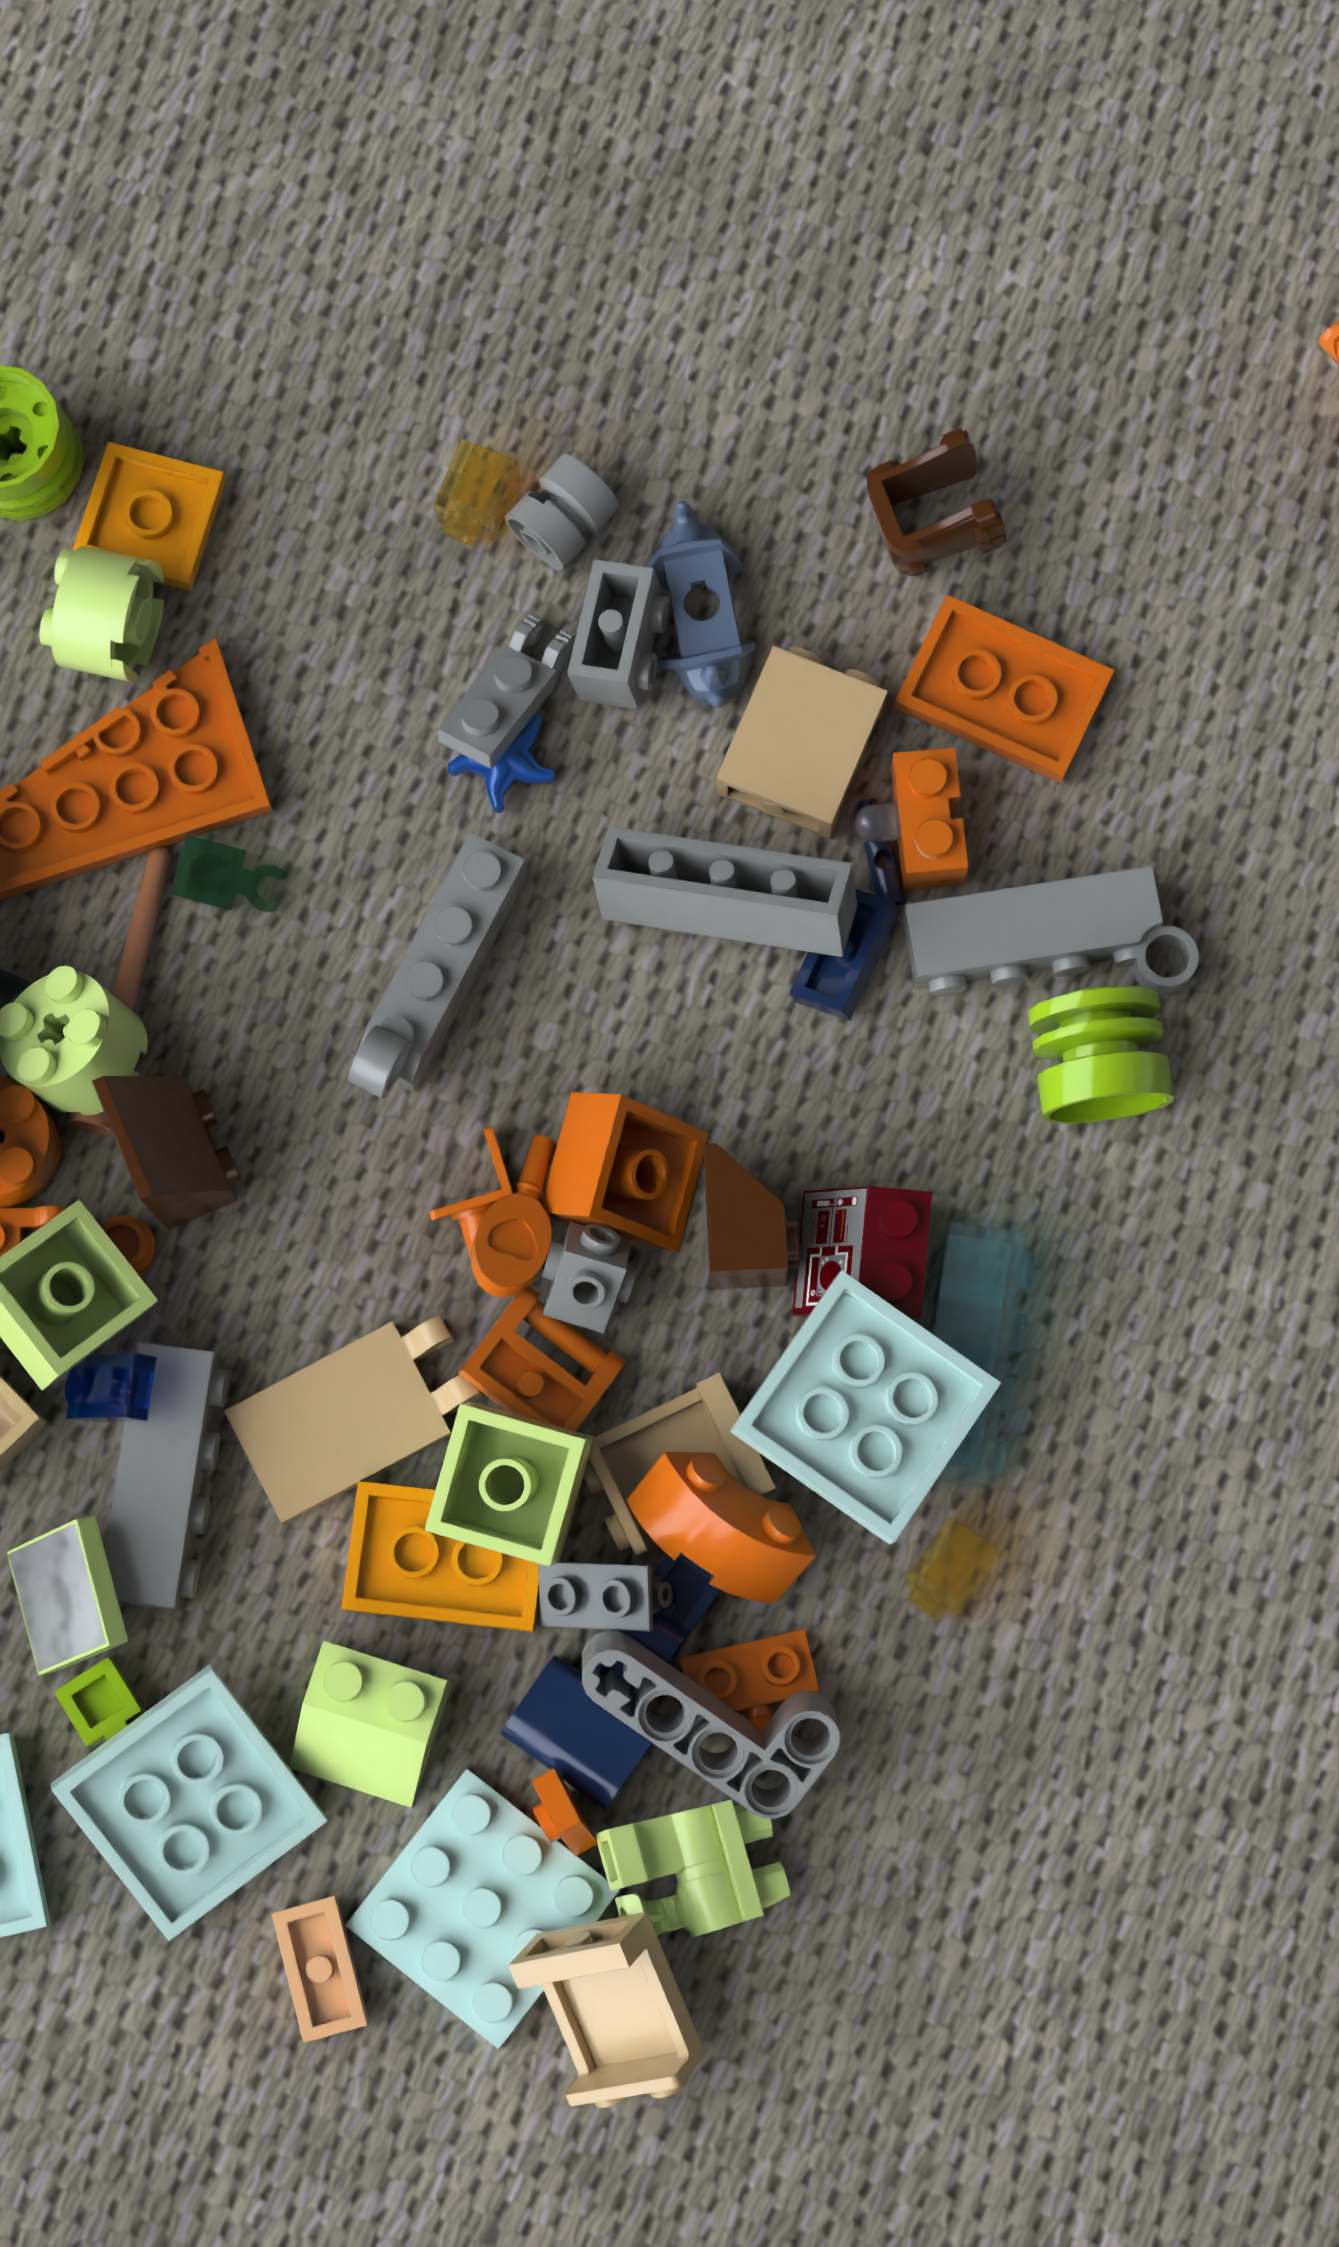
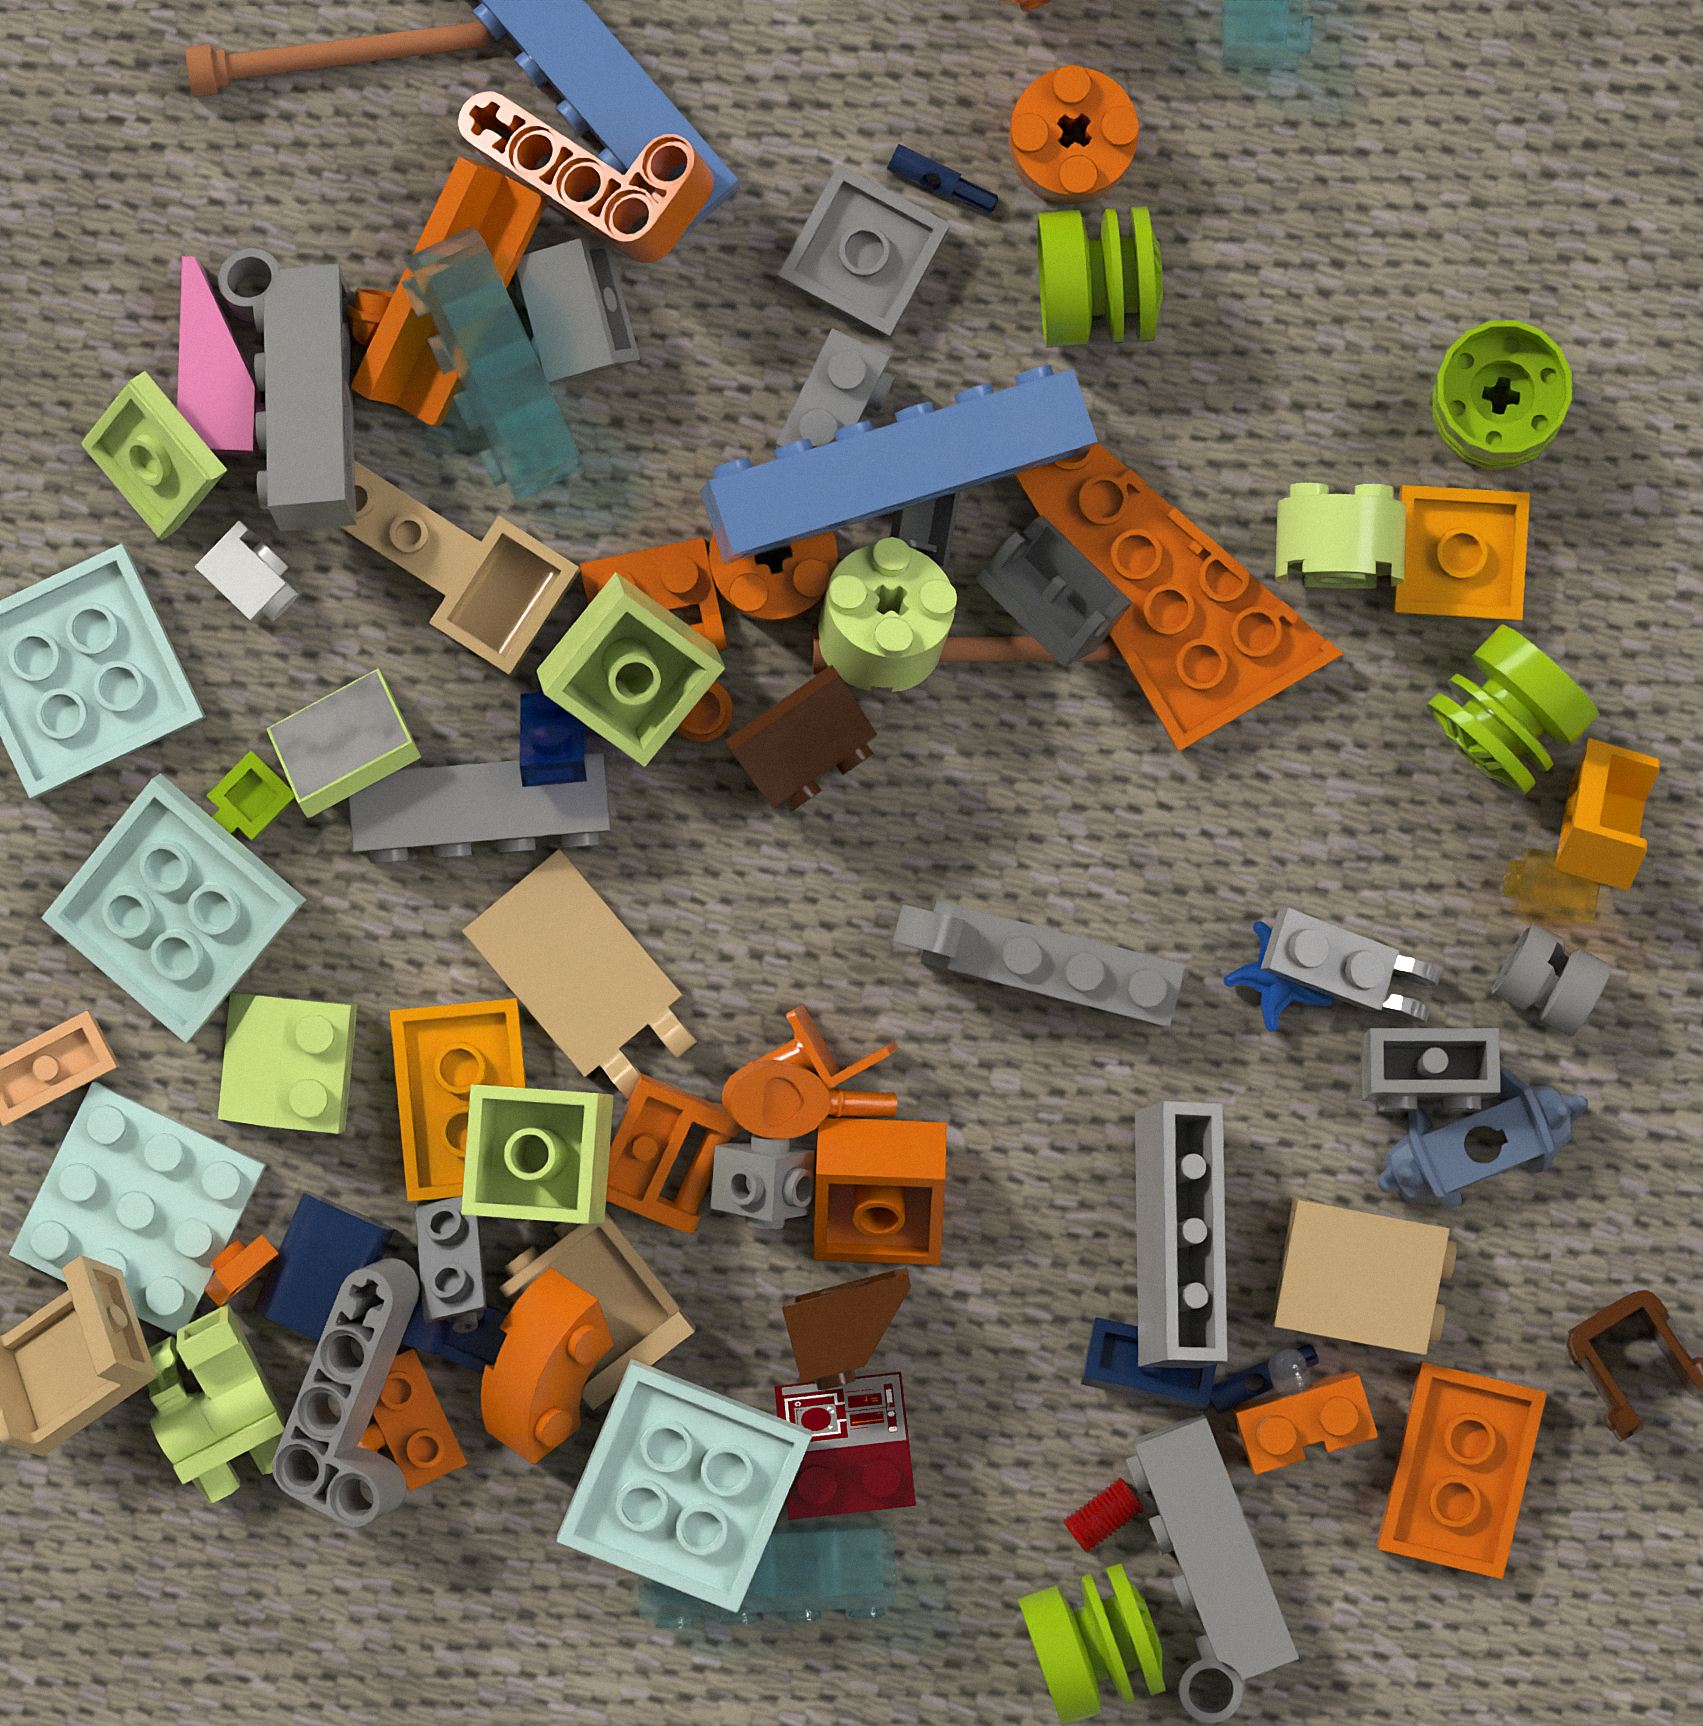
camera: 75 degrees right, 10 degrees up
(89, 885) = (1054, 591): none -> dark grey hinge
(215, 873) = (1097, 711): clear green plate -> none
(301, 490) = (1509, 713): none -> lime wheel
(419, 435) = (1606, 814): none -> light orange panel
(950, 1571) = (551, 1594): clear yellow brick -> none
(998, 1044) = (1096, 1505): none -> red piece

